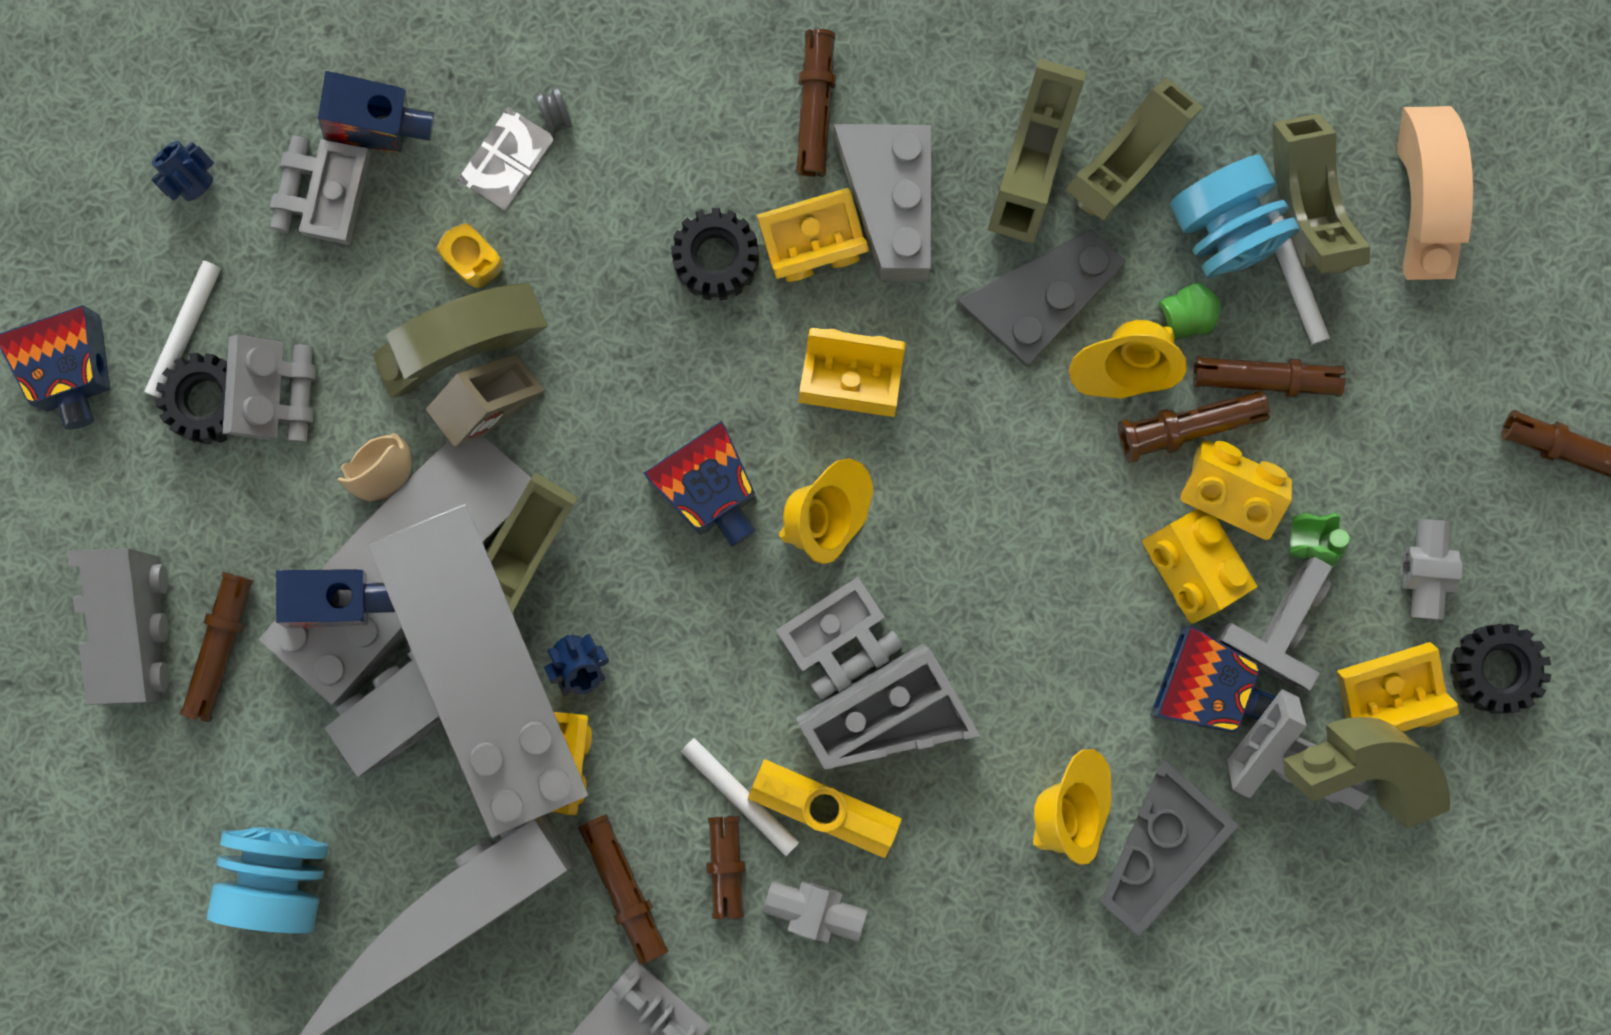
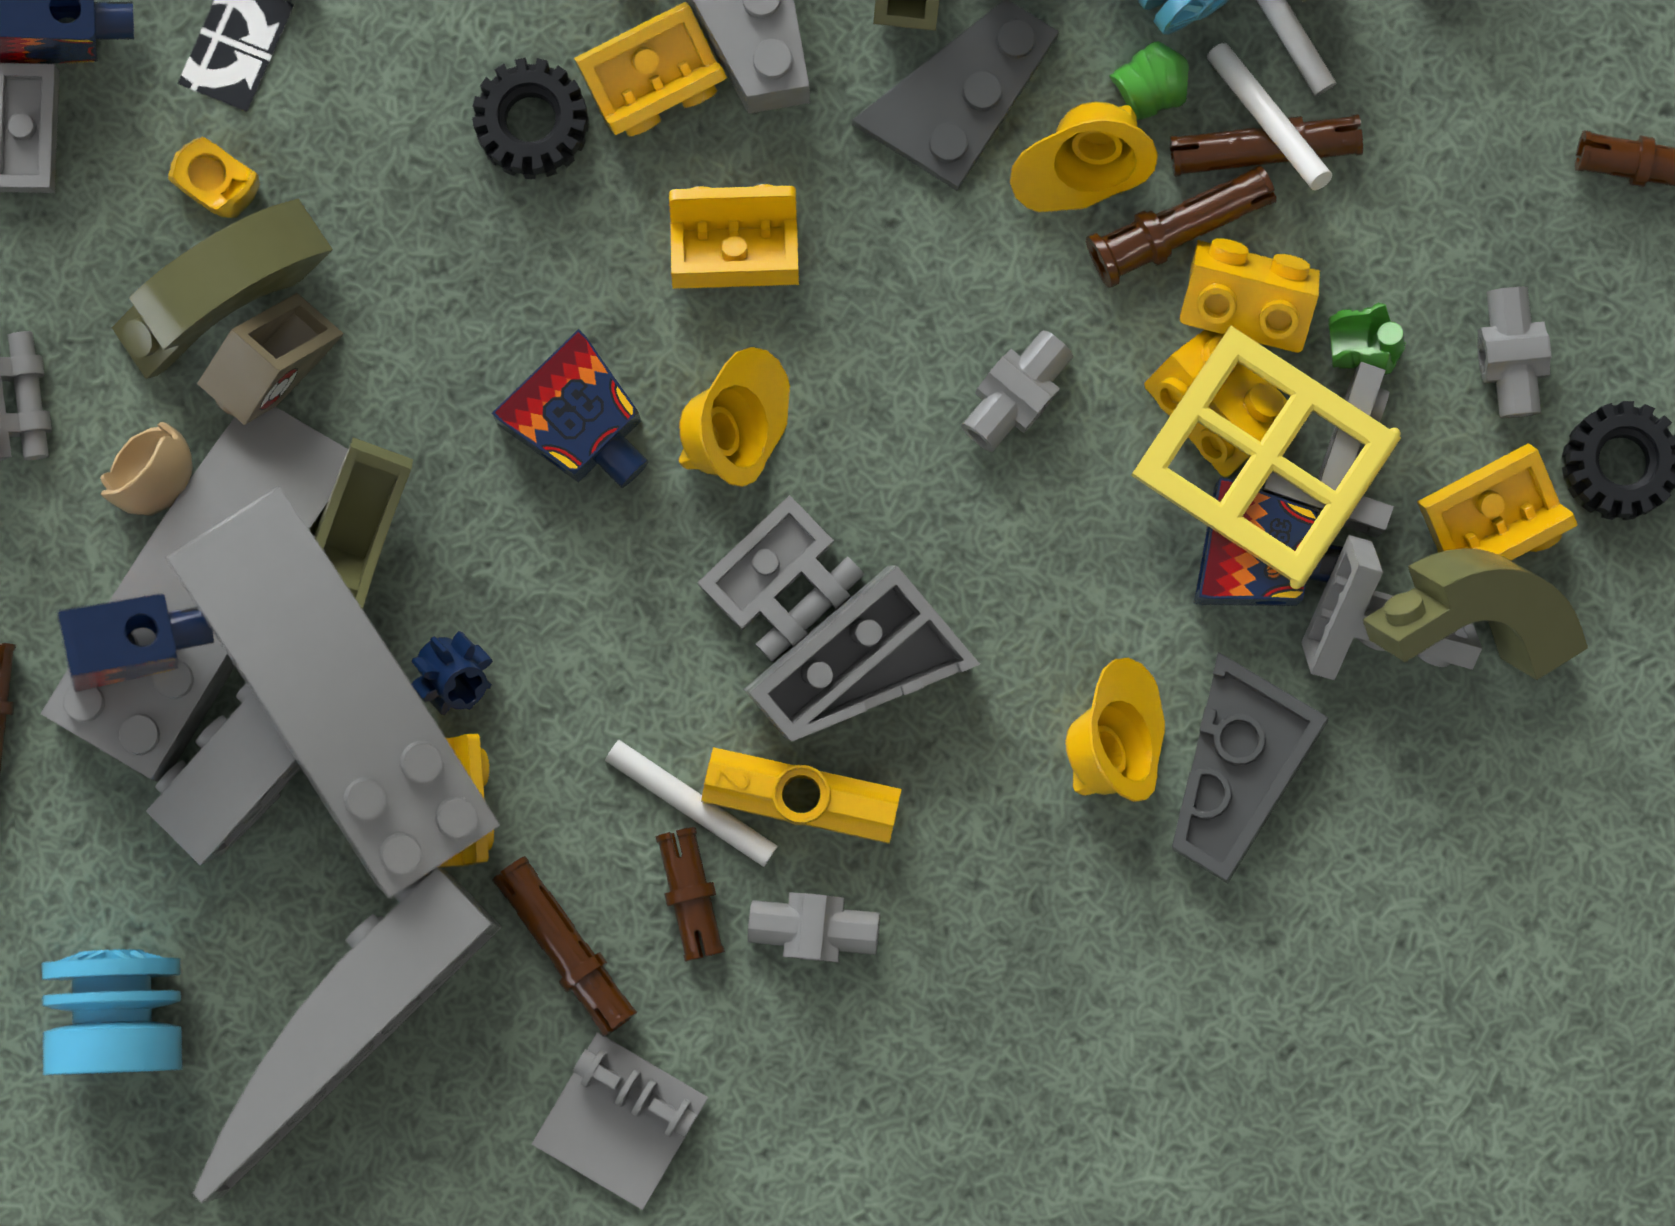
camera: 15 degrees left, 0 degrees up
(1045, 528) = (1017, 391): none -> light grey axle
(1229, 616) = (1266, 456): none -> light yellow window
(1276, 356) = (1269, 116): none -> white bar

